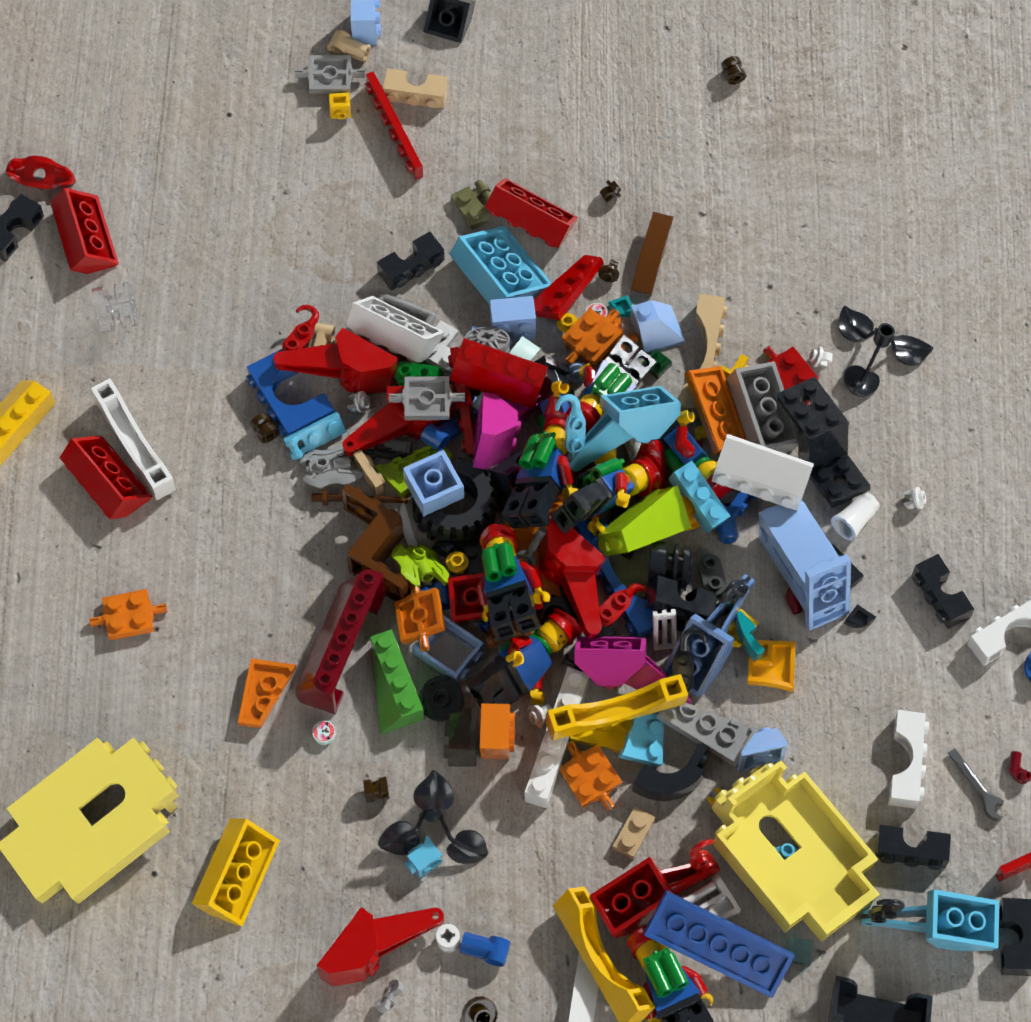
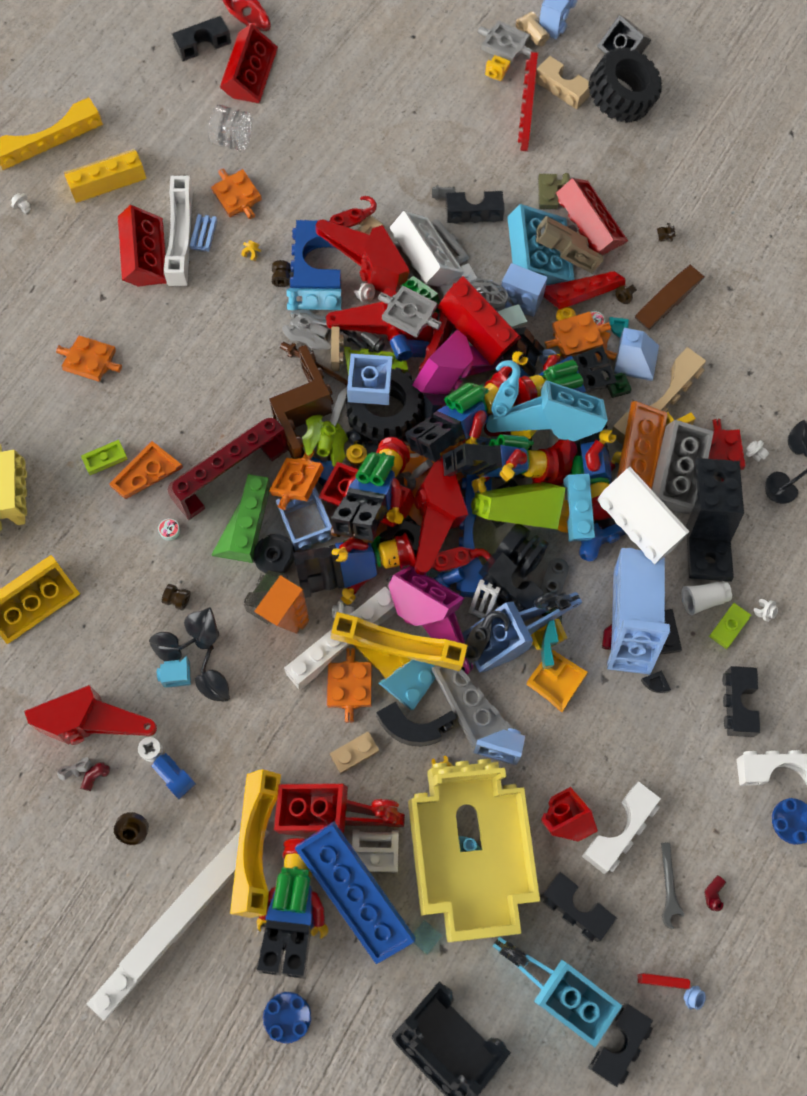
camera: 30 degrees right, 5 degrees up
(149, 413) = (205, 220): none -> light blue tile
(161, 370) = (236, 193): none -> orange plate
(213, 700) = (104, 457): none -> lime plate
(217, 416) = (251, 247): none -> yellow plate
(369, 262) = (440, 192): none -> dark grey pin
(410, 986) = (94, 772): none -> dark red arm
(486, 44) = (613, 96): none -> black tyre
(528, 250) = (569, 243): none -> dark tan plate
(621, 625) = (450, 577): none -> blue pin
(858, 774) = (569, 817): none -> red slope
(892, 531) = (730, 625): none -> lime plate

